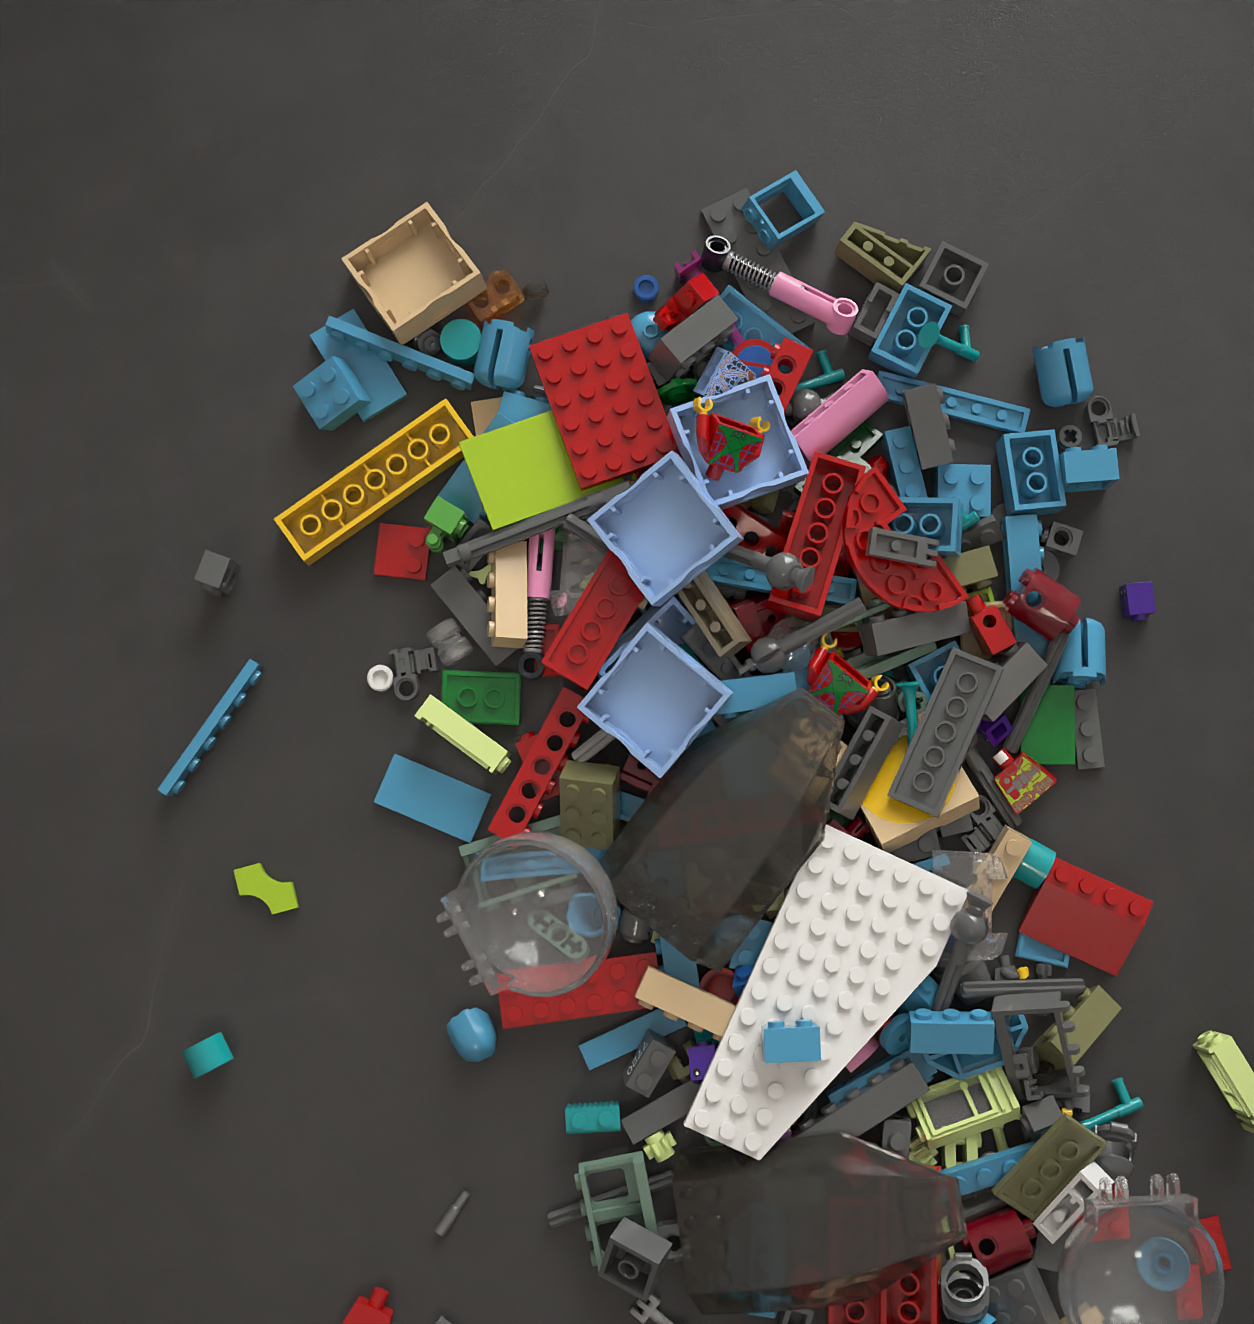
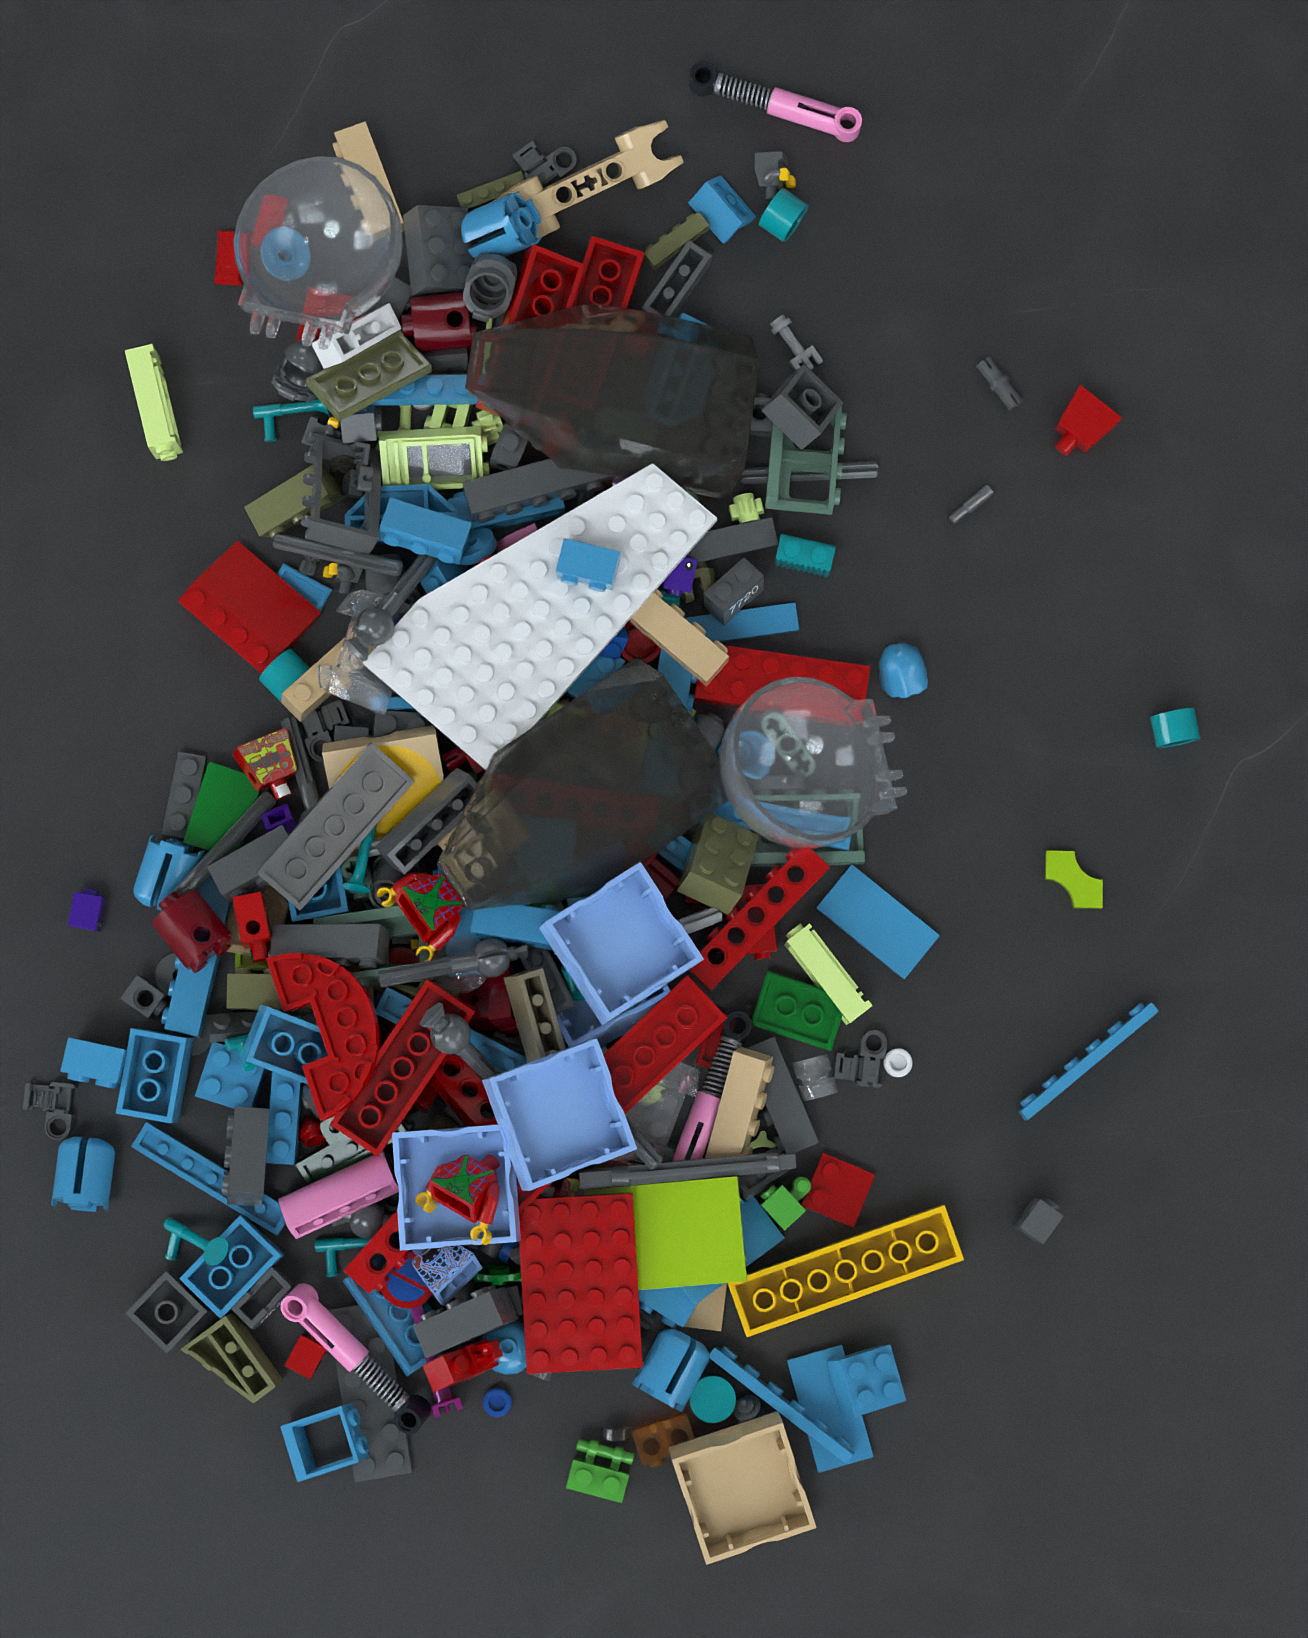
camera: 170 degrees left, 0 degrees up
(540, 248) = (597, 1478): none -> bright green brick
(822, 275) = (306, 1356): none -> red brick
(901, 547) = (322, 1025): dark grey hinge -> none
(1077, 437) = (107, 1108): dark grey bush -> none

